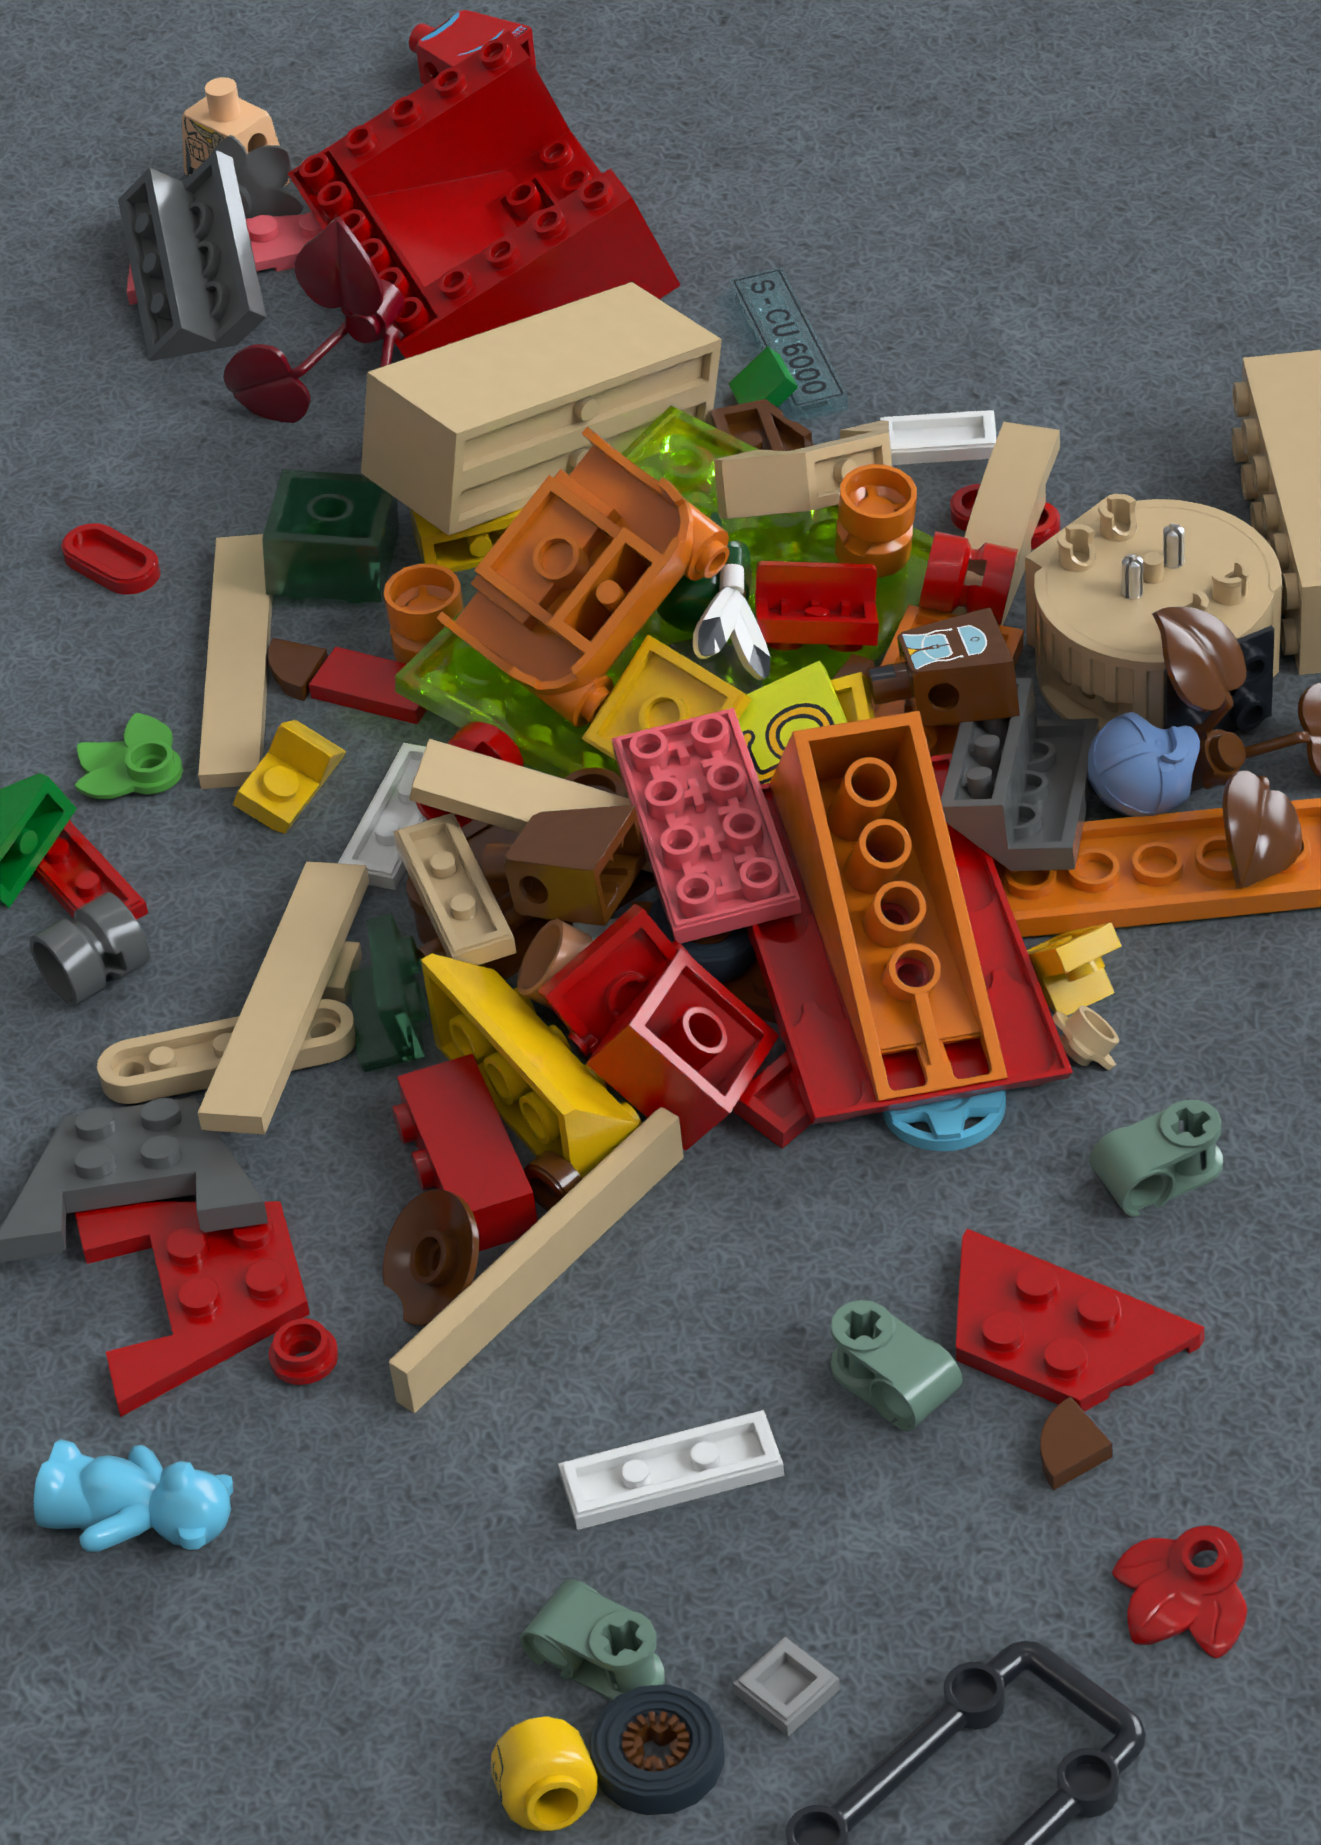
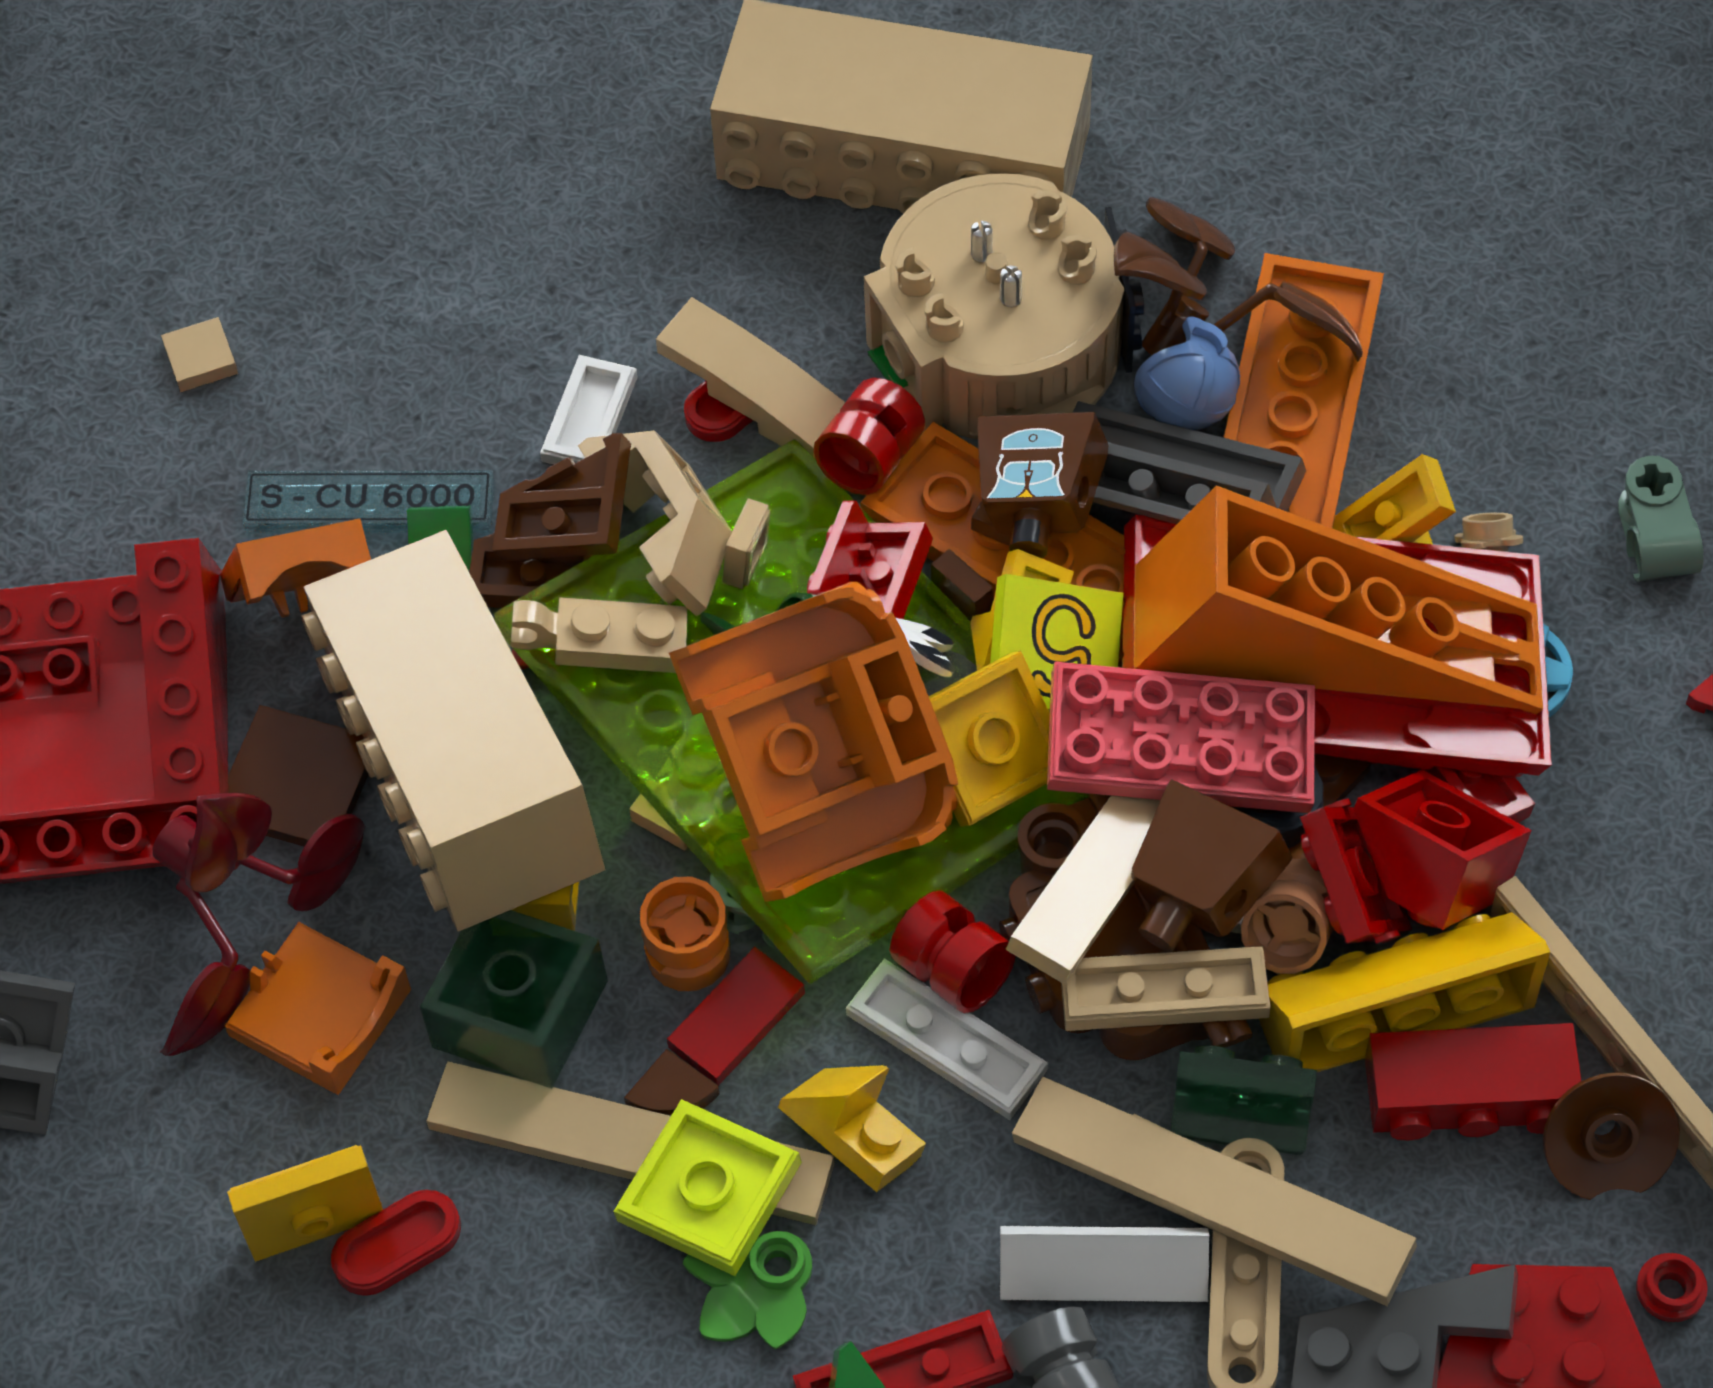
camera: 75 degrees left, 15 degrees up
(105, 475) = (305, 1202): none -> yellow plate
(197, 697) = (708, 1187): none -> neon yellow tile
(204, 951) = (1104, 1263): none -> white tile
(294, 442) = (318, 1006): none -> orange piece
(550, 1178) = (1537, 1006): reddish brown tile -> none
(669, 281) = (292, 561): none -> orange piece
(673, 454) = (602, 633): none -> tan plate
(803, 417) = (567, 508): none -> reddish brown wing
(806, 525) = (746, 544): none -> tan tile
(876, 518) = (776, 469): orange wheel -> none
(888, 212) = (199, 354): none -> tan tile

